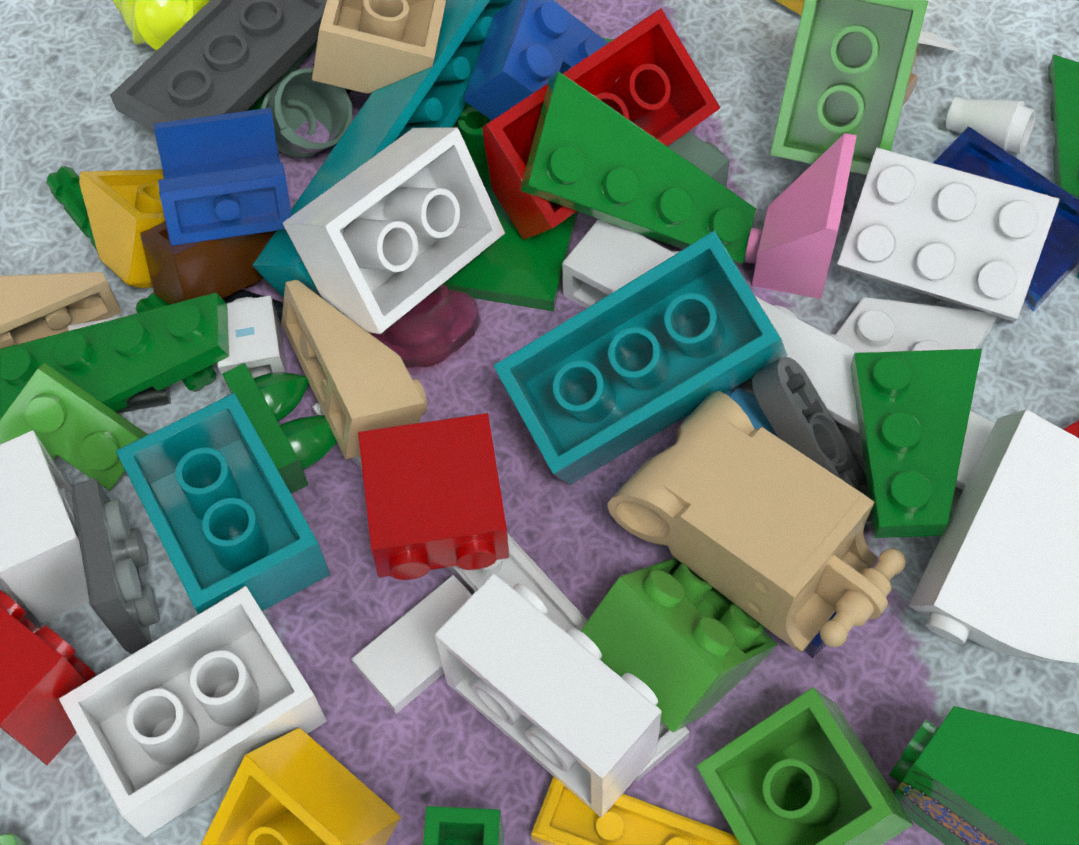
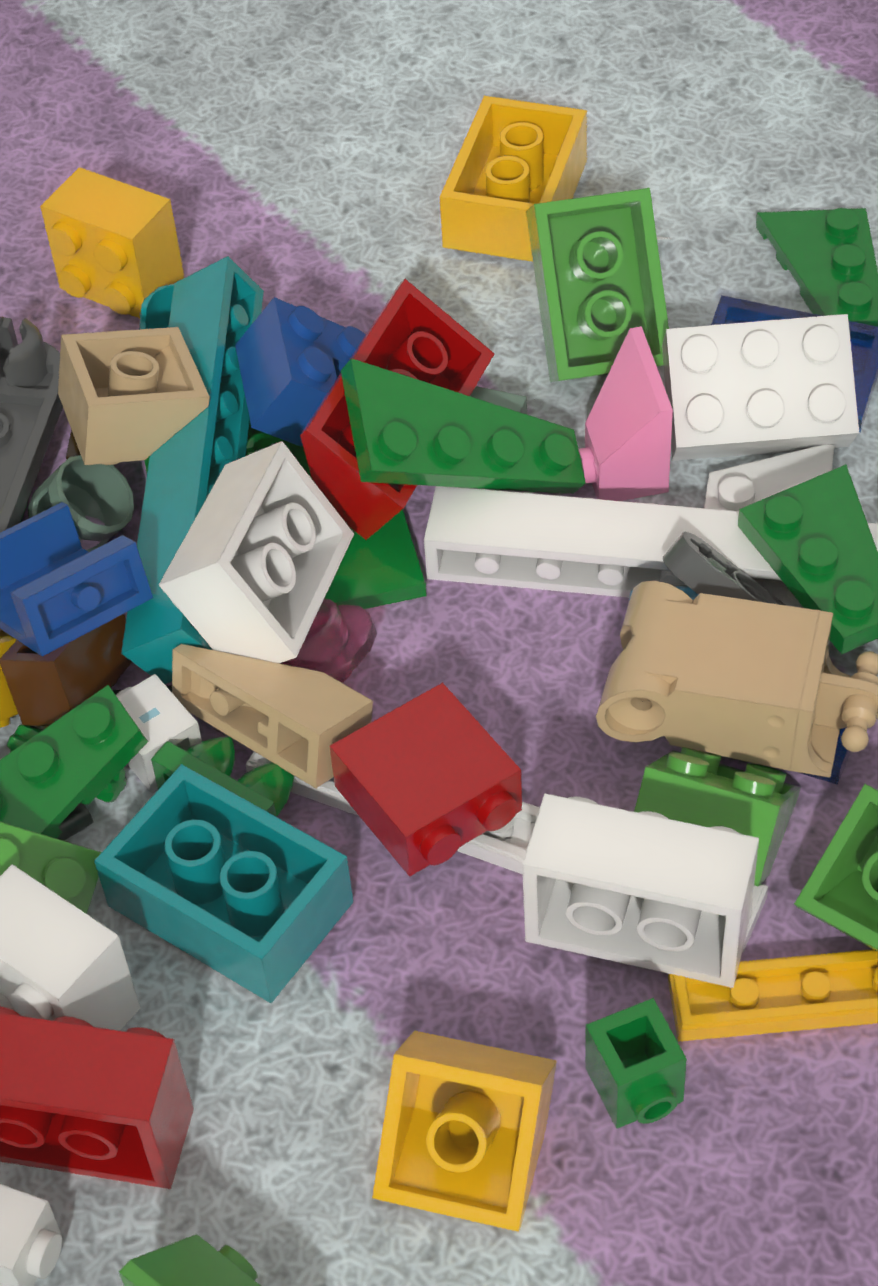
camera: 25 degrees left, 10 degrees down
(111, 564) = (160, 971): dark grey piece -> none
(189, 709) = (303, 1059): white brick -> none
(406, 655) = (478, 923): white tile -> none
(640, 359) = (553, 586): teal brick -> none
(1000, 121) = (744, 280): white cone -> none

